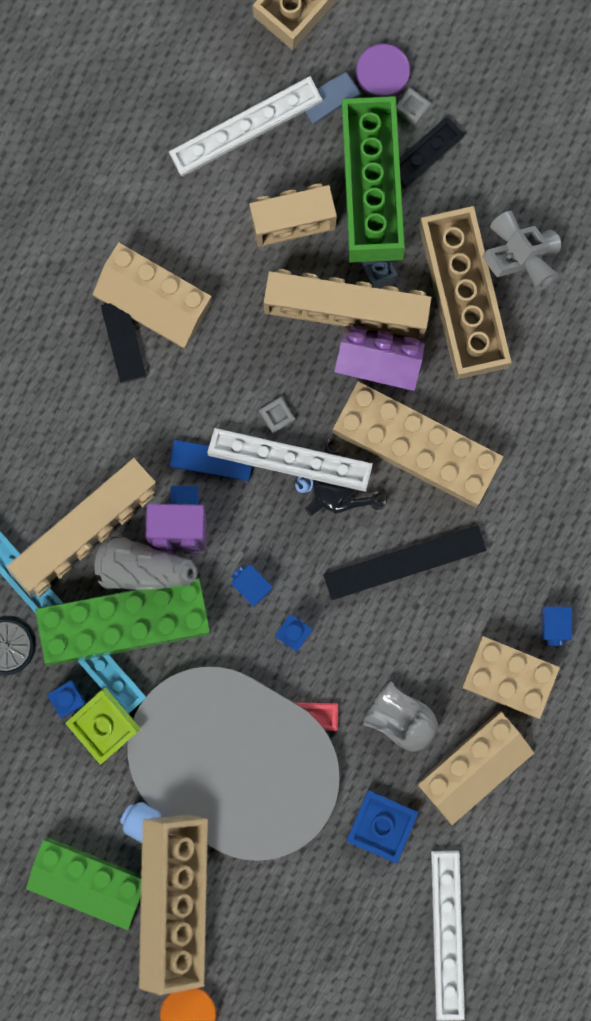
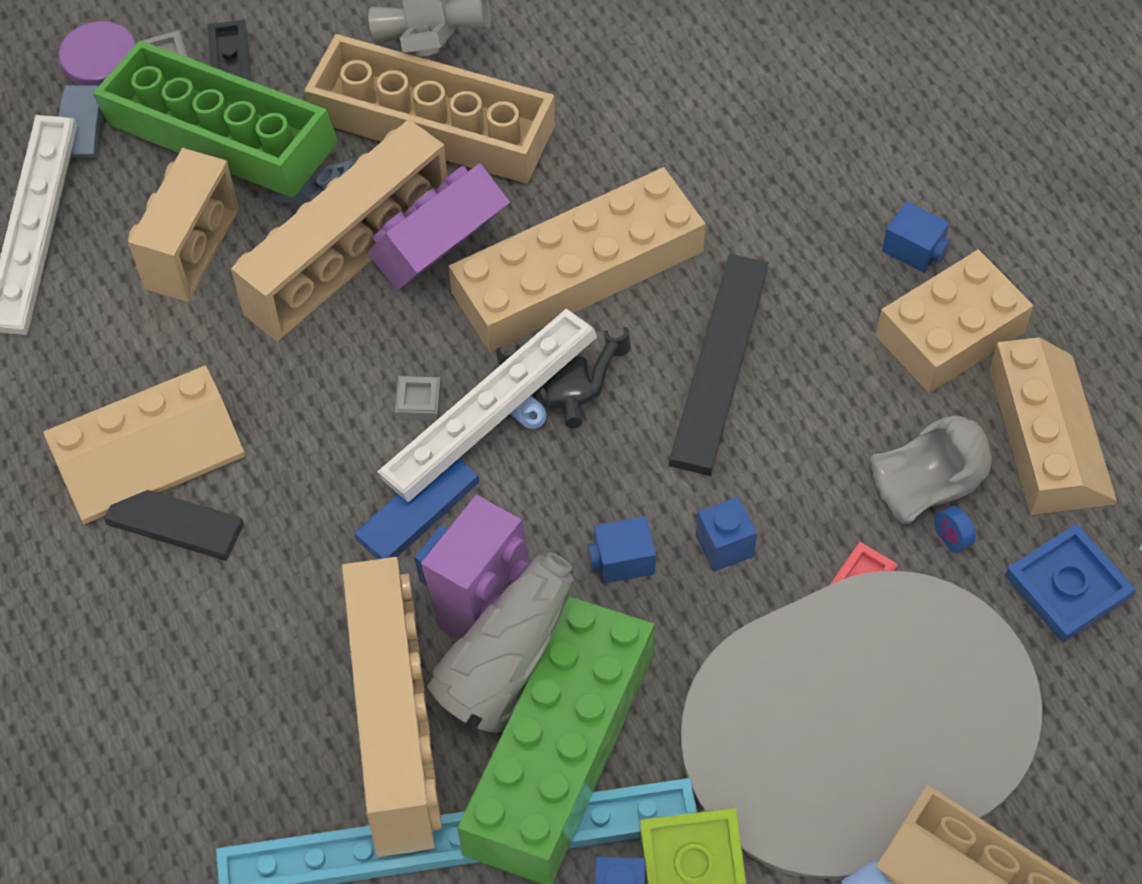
camera: 55 degrees left, 25 degrees down
(376, 750) = (955, 528): none -> blue tile

